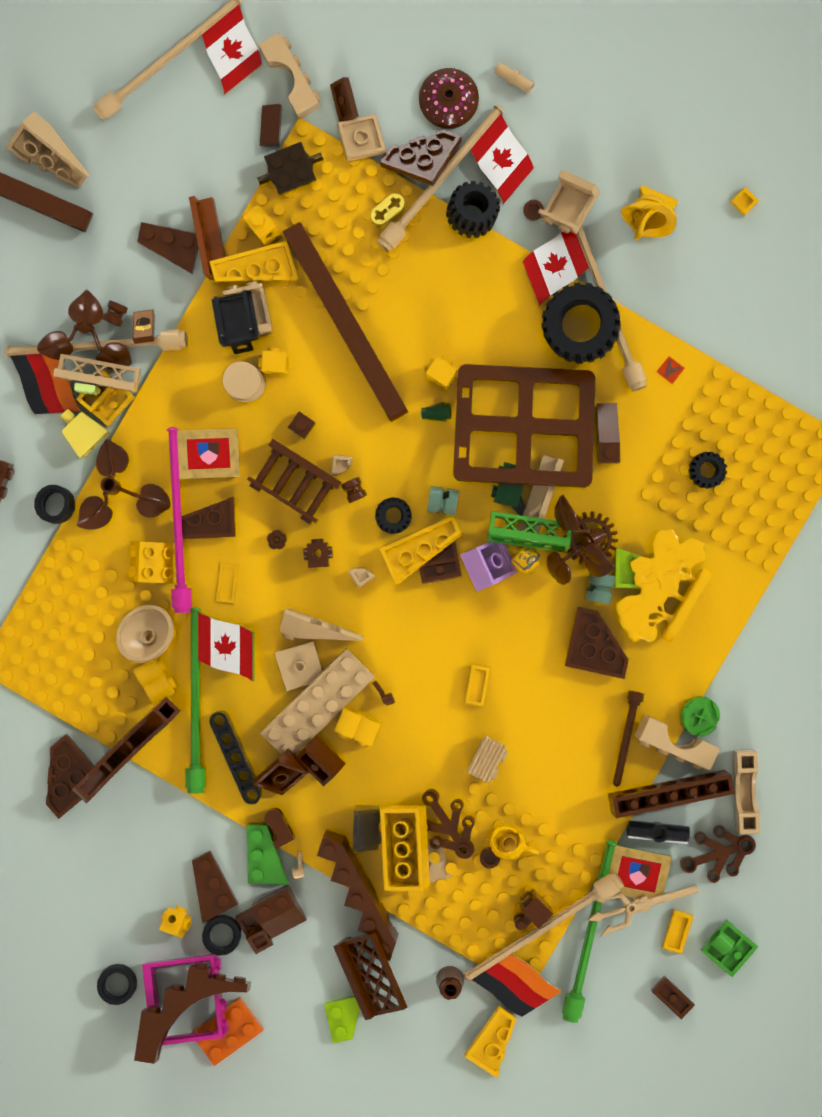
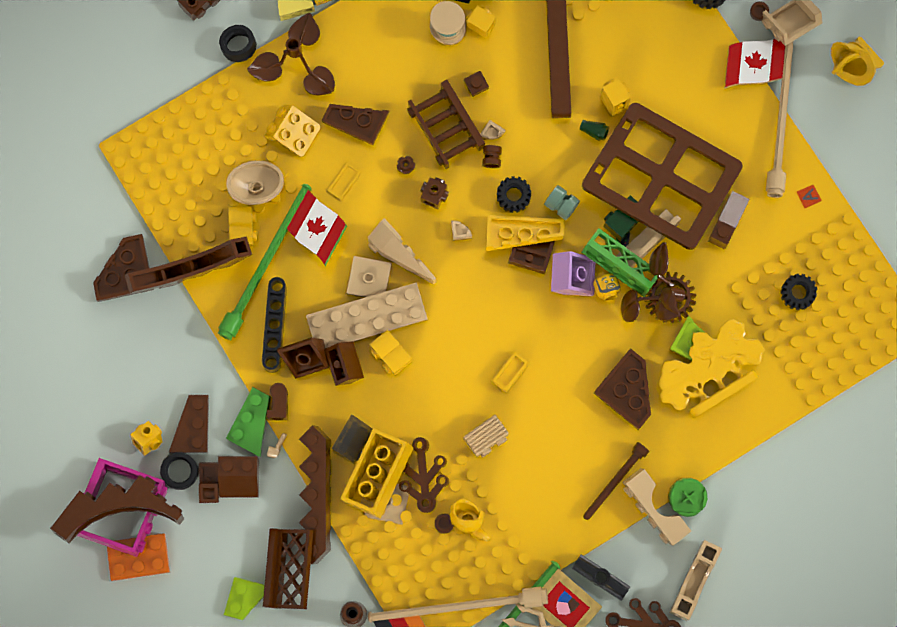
camera: 30 degrees right, 10 degrees down
(103, 992) = (53, 461): black tyre -> none
(196, 456) = (374, 62): flag -> none
(387, 699) = (428, 344): reddish brown hand -> none
(534, 910) = (460, 584): reddish brown brick -> none
(562, 303) = (747, 93): black tyre -> none
(600, 588) = (658, 340): sand green wheel -> none
(671, 793) = (629, 547): reddish brown brick -> none

